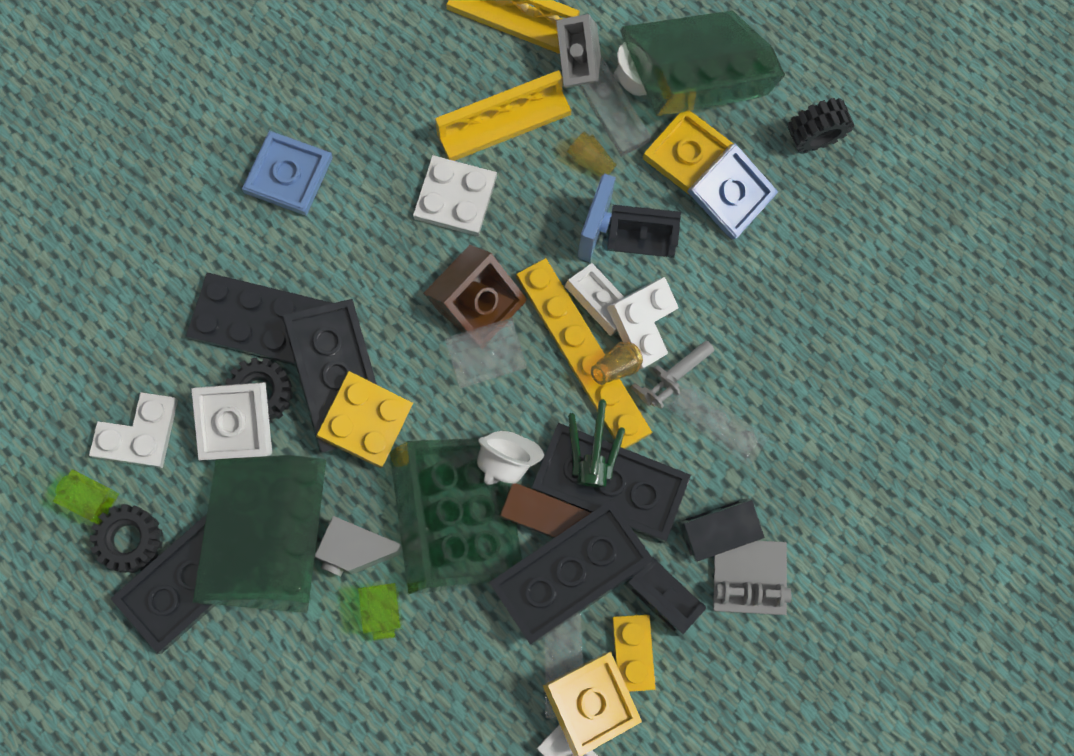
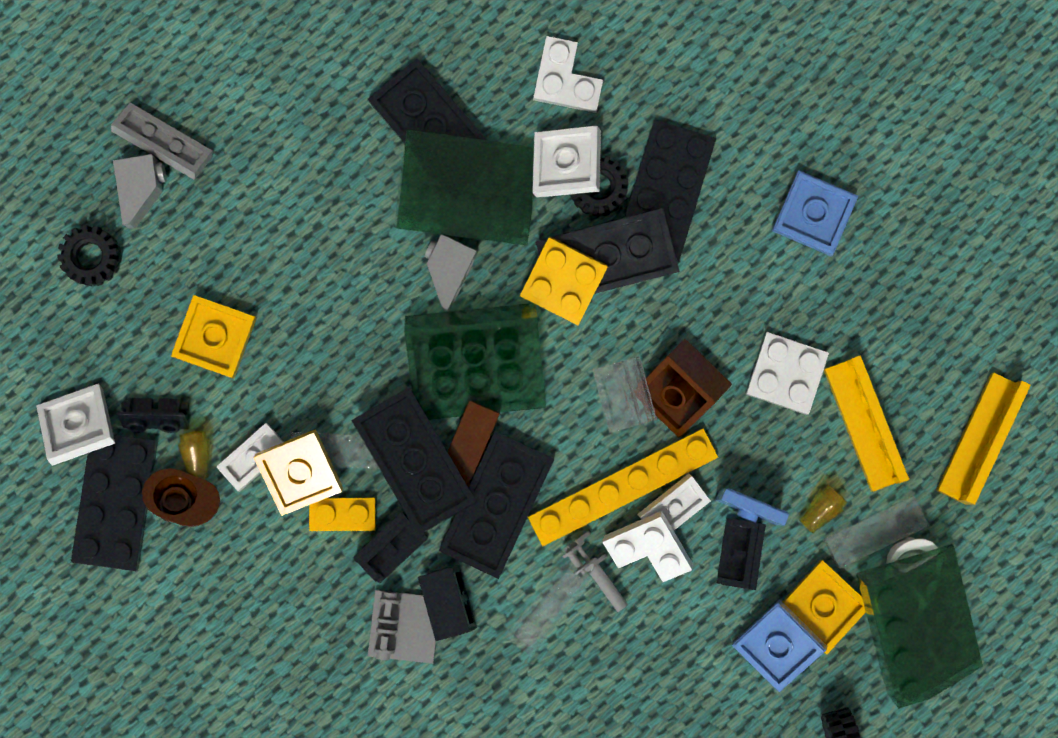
camera: 100 degrees right, 10 degrees up
(84, 496) = (508, 33): clear neon green brick -> none
(108, 527) = (475, 52): black tyre -> none
(380, 611) = (391, 291): clear neon green brick -> none
(507, 456) = (524, 410): white piece -> none
(579, 50) = (928, 501): light grey slope -> none
(593, 470) = (504, 487): dark green plant -> none
(619, 362) = (606, 517): clear yellow cone -> none

